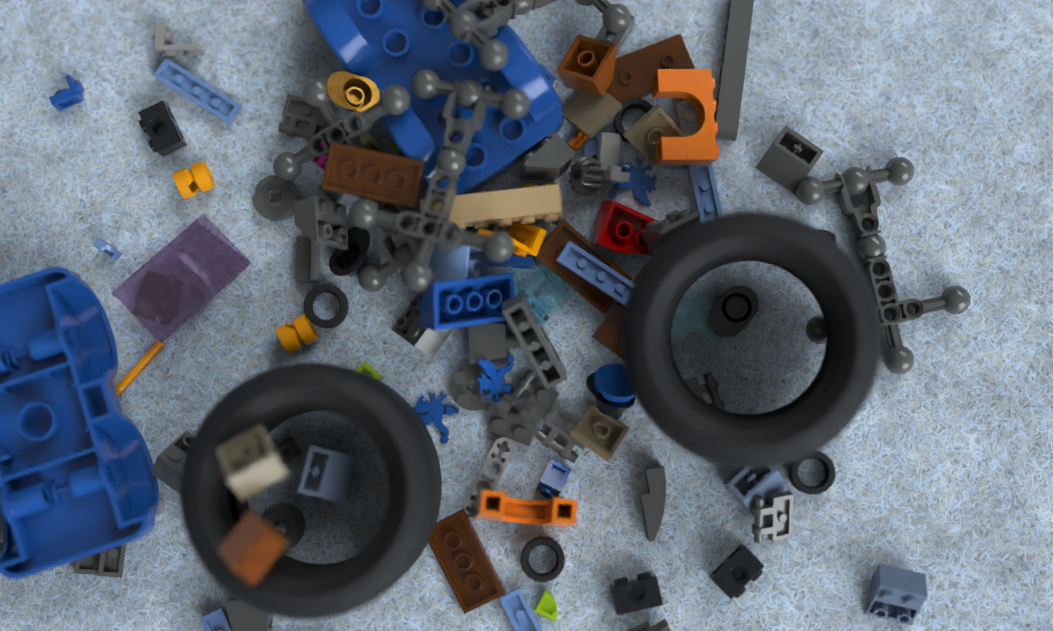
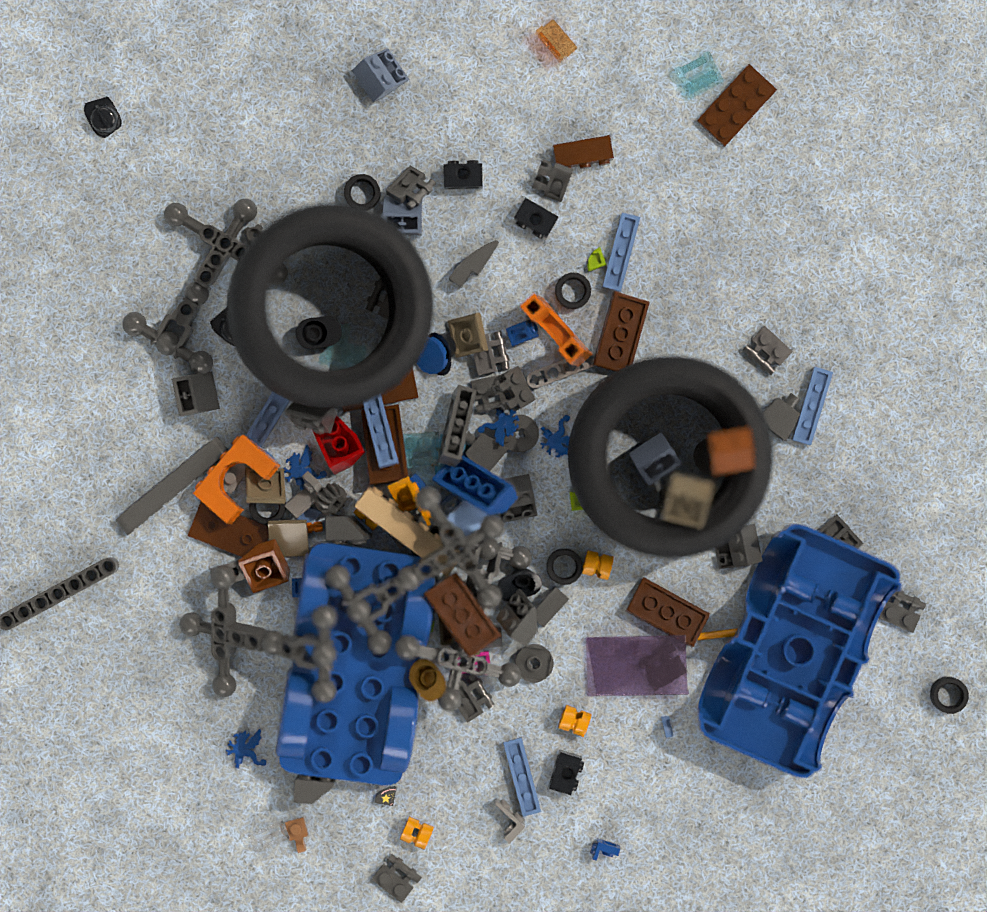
camera: 145 degrees left, 5 degrees up
(197, 350) = (667, 611): none -> reddish brown plate

